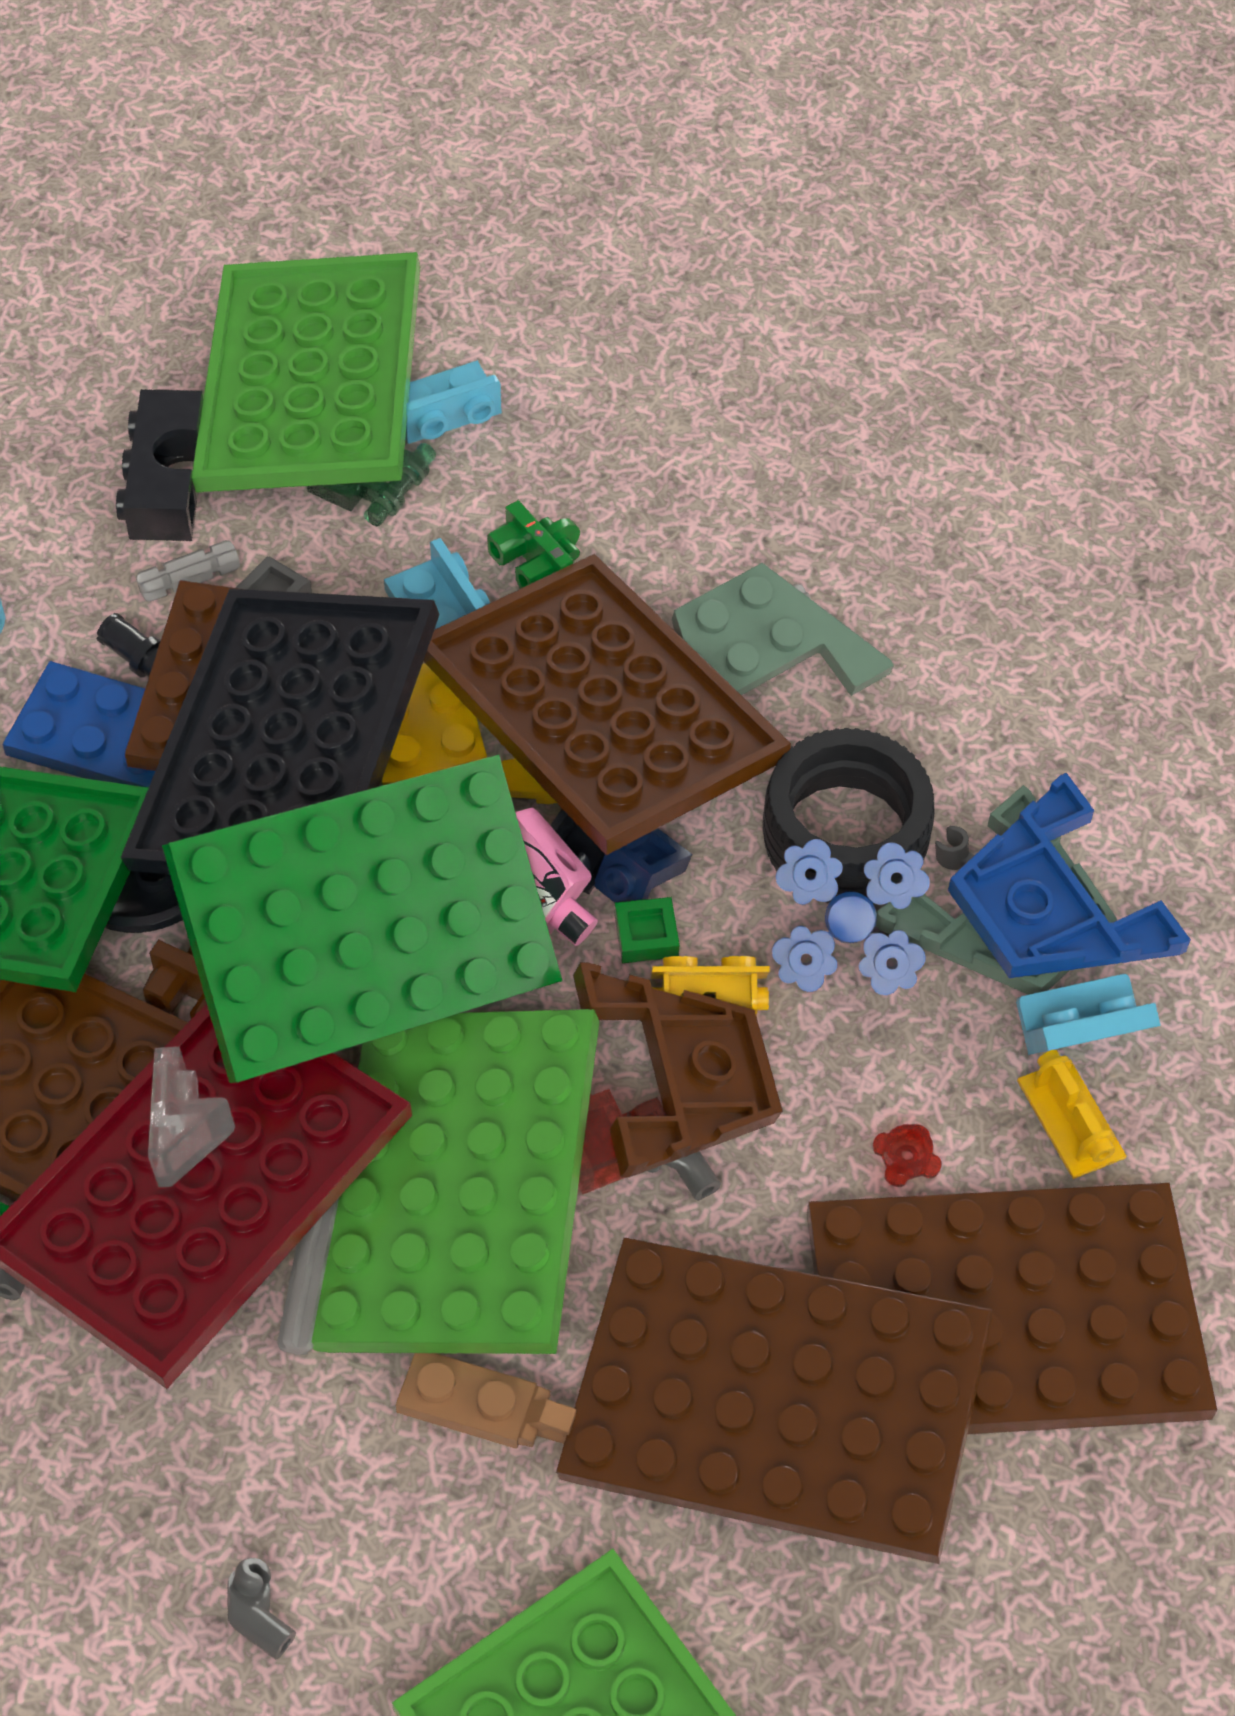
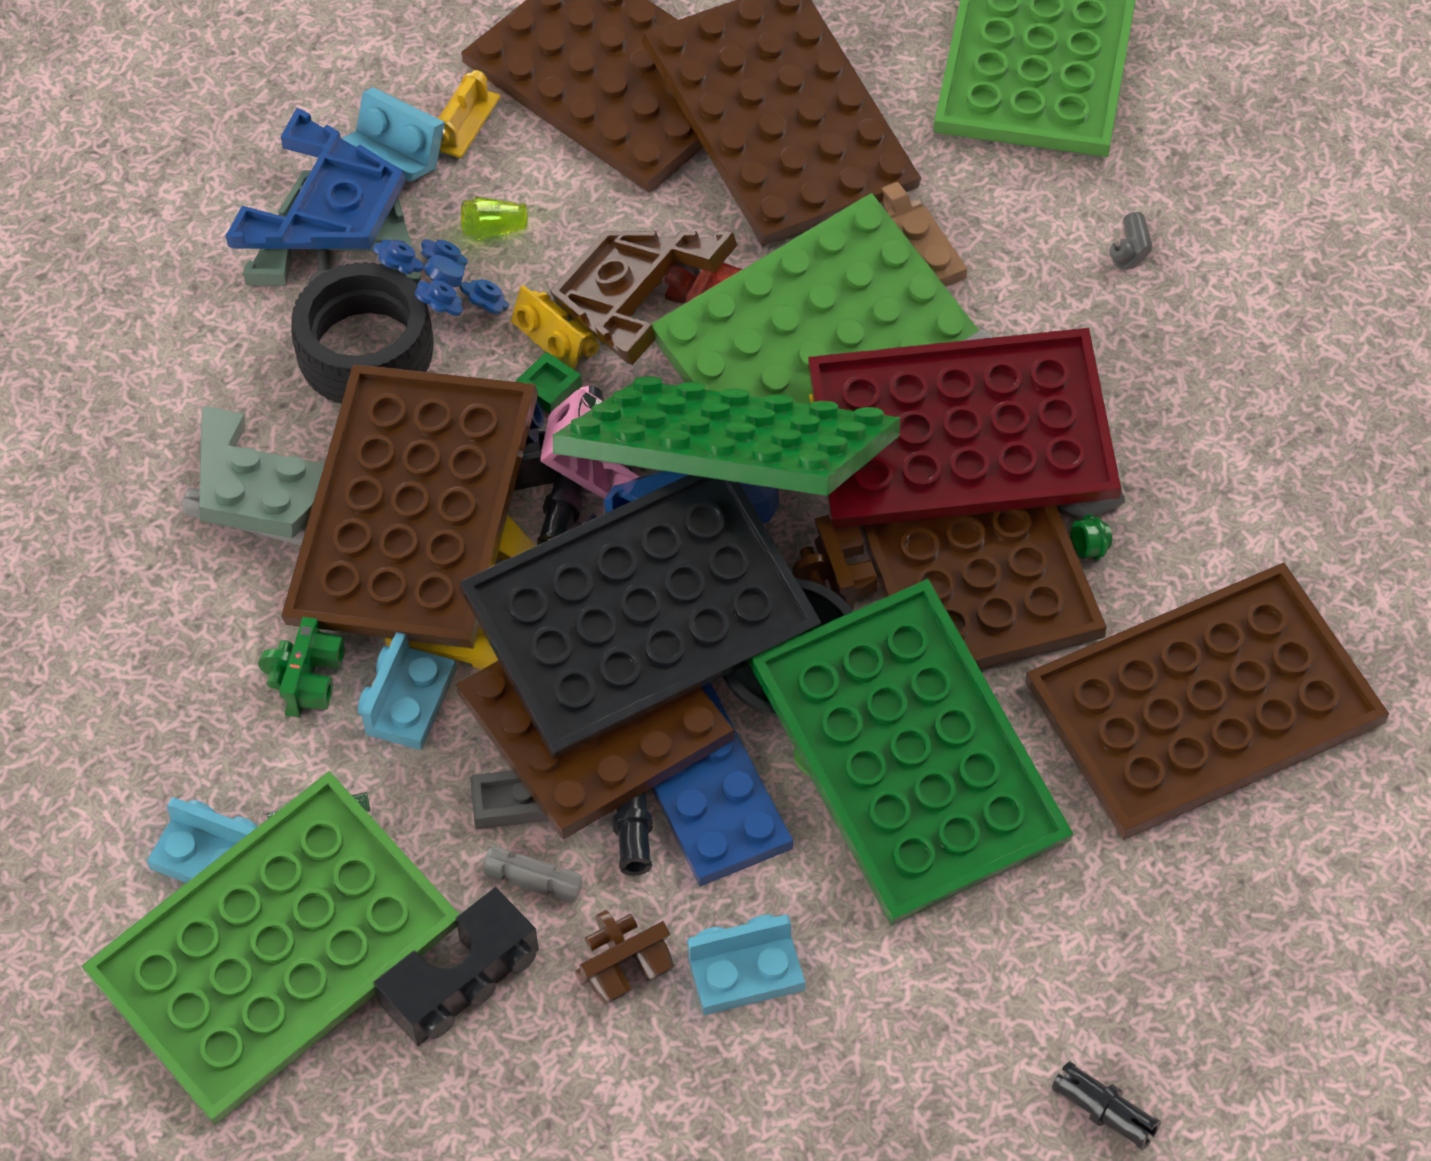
camera: 130 degrees left, 0 degrees up
(51, 562) = (604, 970): none -> reddish brown hips
(180, 1123) = (951, 432): clear slope -> none
(902, 1036) = (492, 217): none -> clear neon green cone
(908, 1138) = (562, 160): clear red plate -> none

